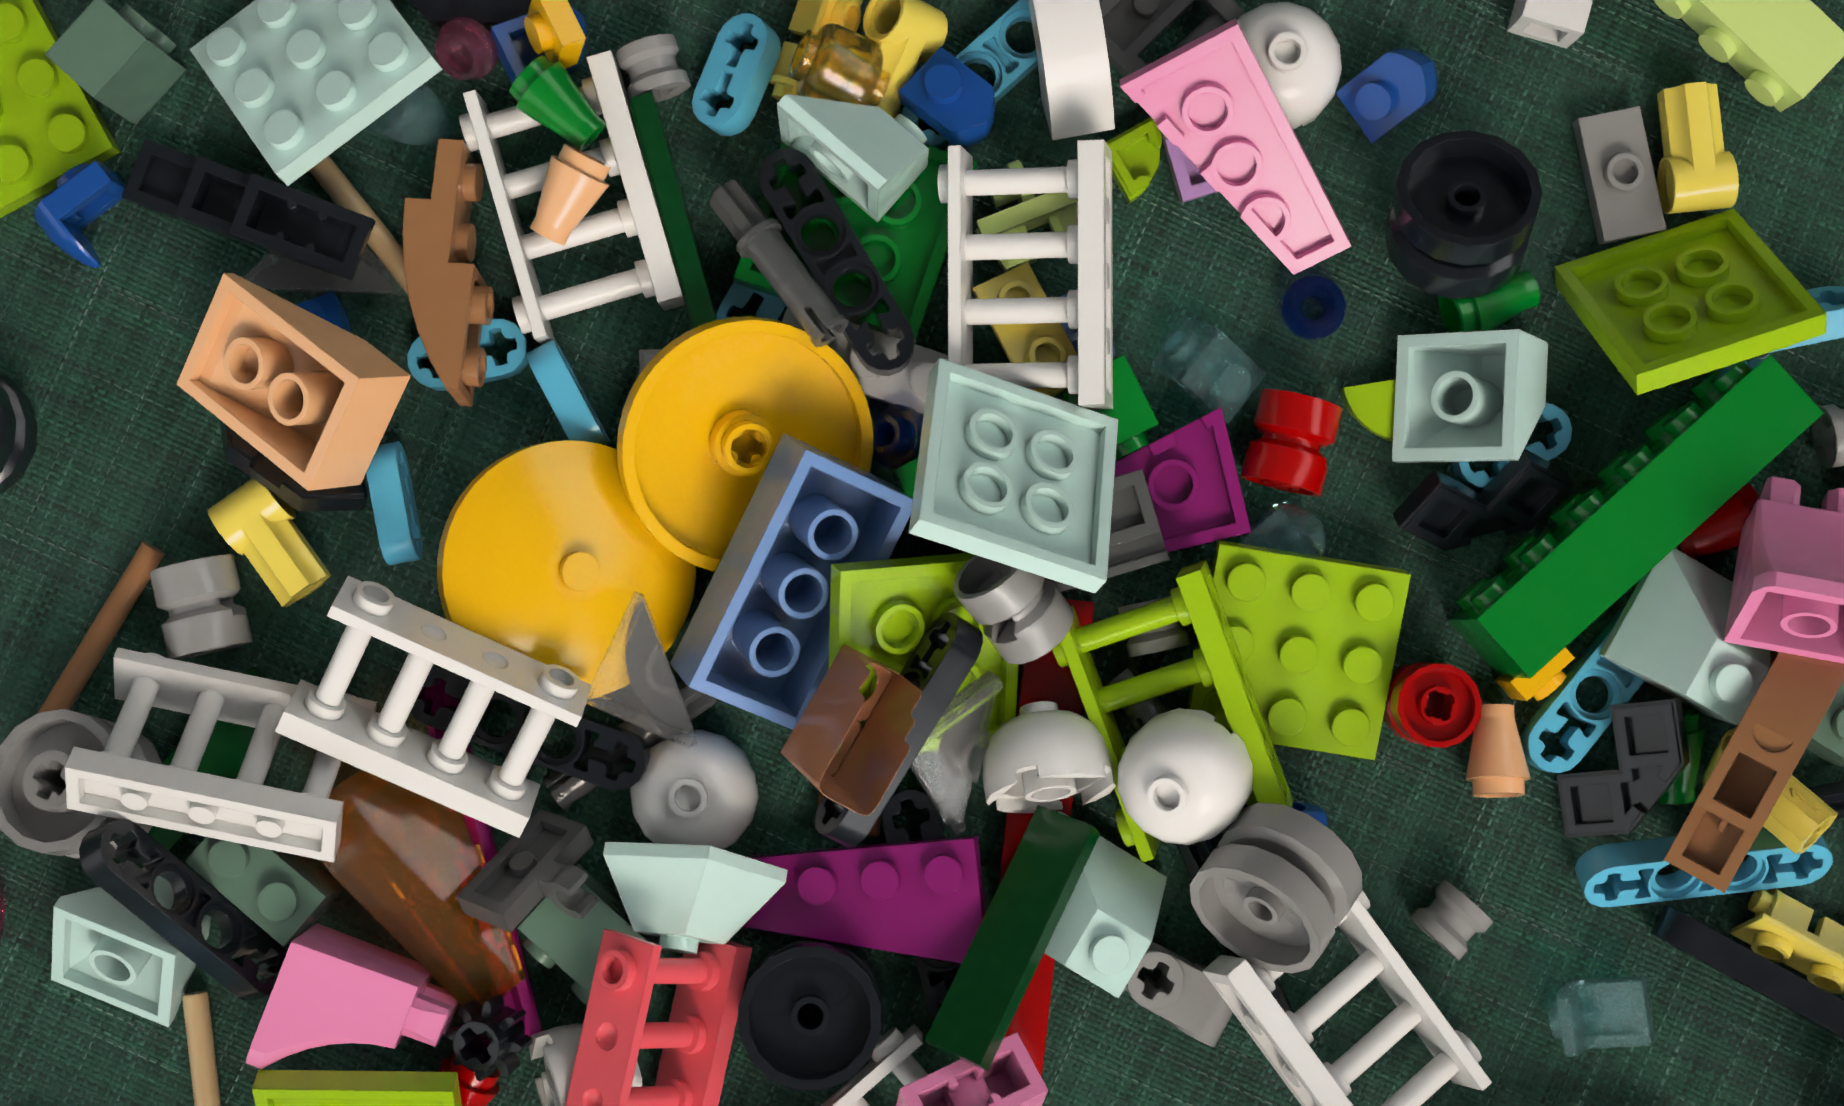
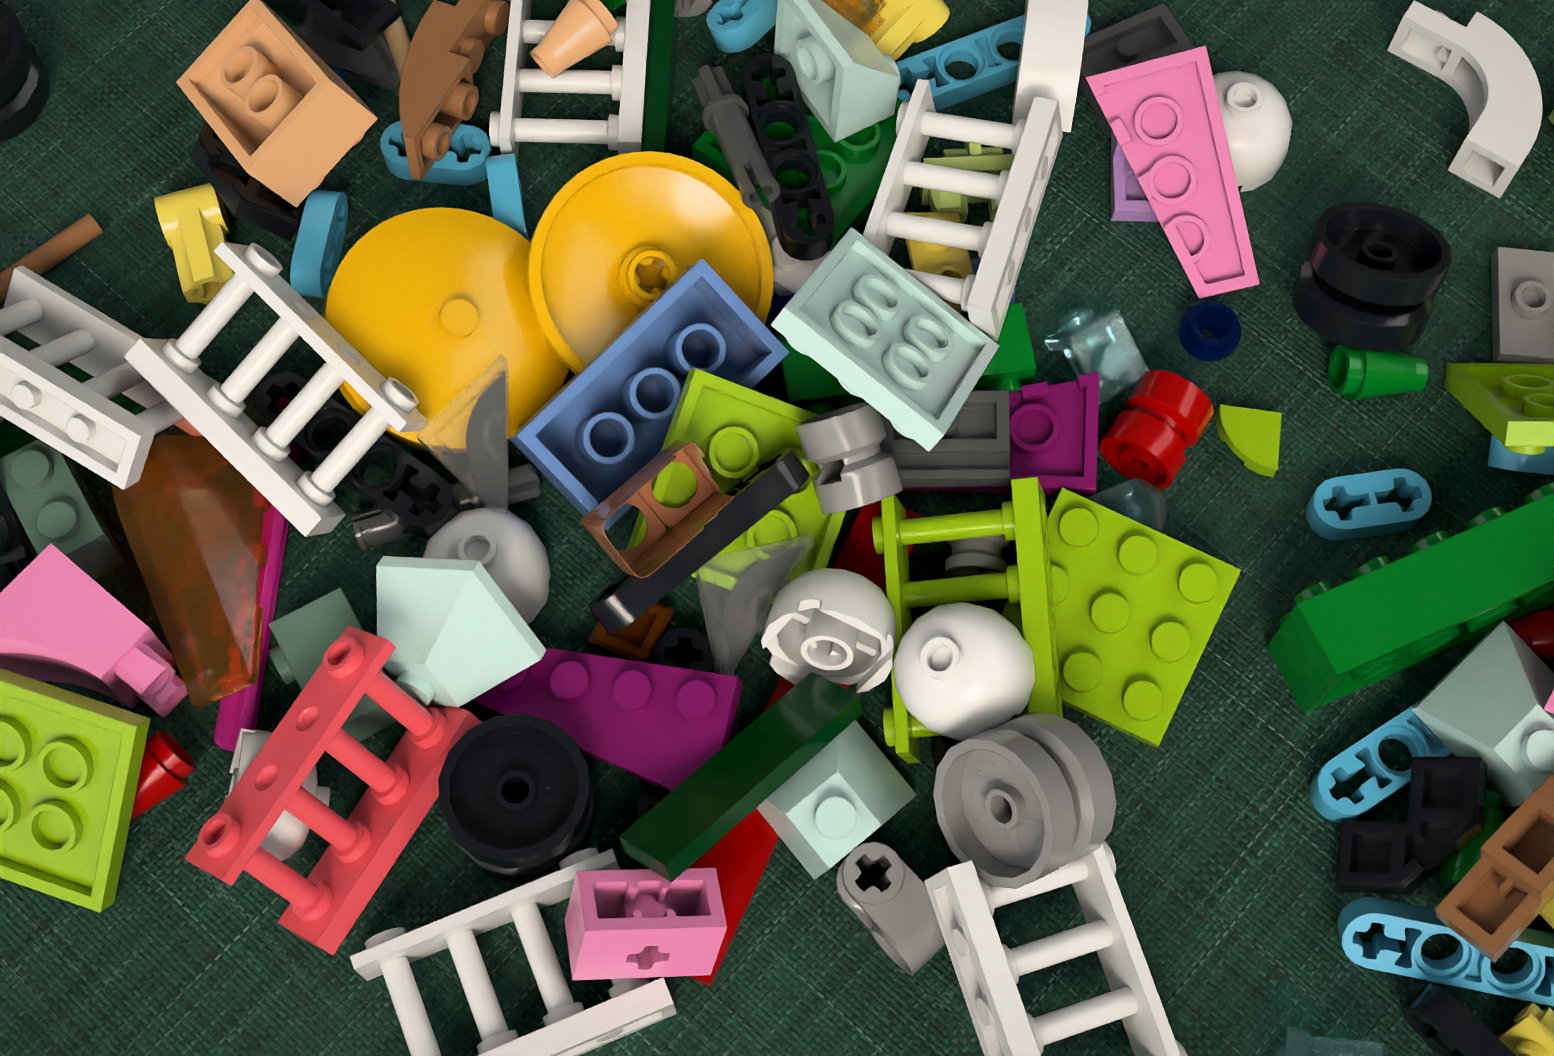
camera: 20 degrees right, 20 degrees down
(200, 606) = (111, 266): light grey wheel -> none
(473, 1046) = (197, 717): black gear -> none
(528, 870) = (309, 573): dark grey plate -> none
(951, 99) = (938, 58): blue plate -> none
(1136, 158) = (1081, 169): lime tile -> none
(1390, 91) = (1328, 174): blue plate -> none
(1432, 704) = (1214, 707): red wheel -> none
(1451, 919) = (1196, 924): light grey wheel -> none
(1467, 395) = (1339, 431): light aqua slope -> none
(1497, 755) = (1283, 781): light nougat cone -> none
(1513, 501) = (1301, 547): black tile -> none
(1542, 683) = (1343, 709): yellow plate -> none

